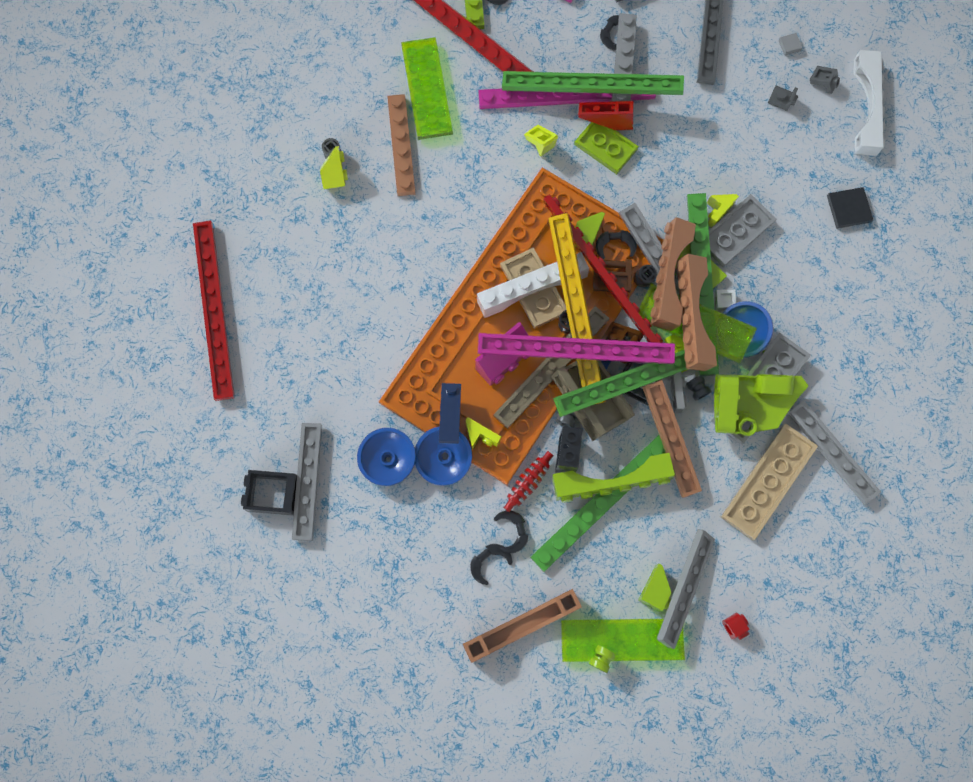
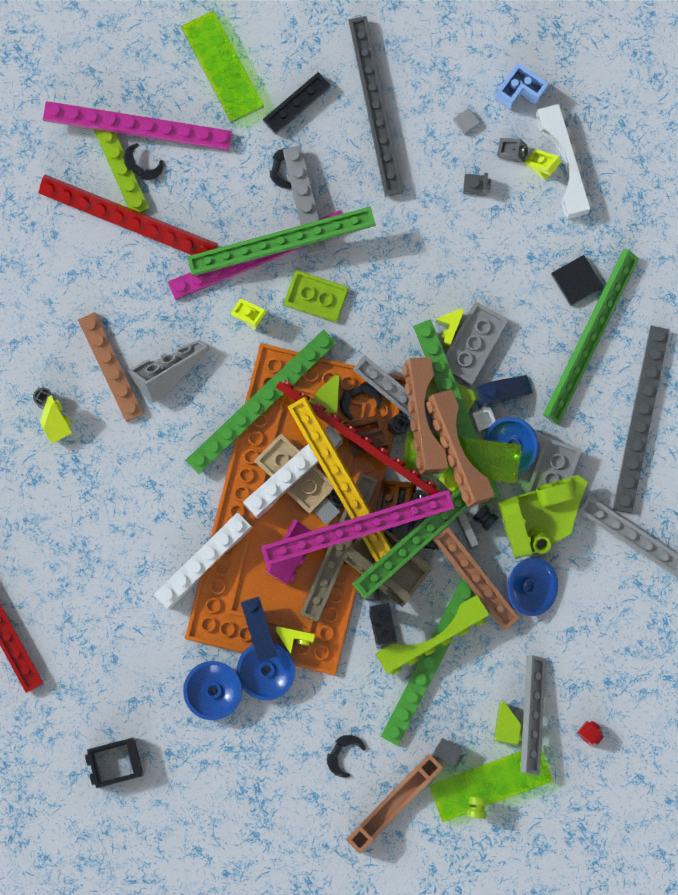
camera: 20 degrees left, 5 degrees up
(307, 482) = (145, 739): light grey plate -> none
(397, 346) = (202, 560): none -> white arch
(426, 88) = (114, 297): clear neon green plate -> none
(442, 166) = (162, 375): none -> light grey wedge
(522, 217) = (260, 402): none -> bright green plate
(522, 537) = (367, 722): black piece -> none
(543, 462) = (354, 665): red piece -> none
(550, 329) = (326, 511): none -> light grey tile
(590, 596) = (448, 753): none -> dark grey brick
(611, 114) = (307, 266): red slope -> none
(731, 466) = (540, 588): none -> blue dish
(750, 278) = (502, 390): none -> dark blue slope
(769, 482) = (580, 586): tan plate -> none
(848, 260) = (591, 336): none -> bright green plate
(850, 25) = (522, 83): none -> light blue brick
(850, 98) = (542, 163): none -> neon yellow slope
(872, 350) = (640, 419): none -> dark grey plate

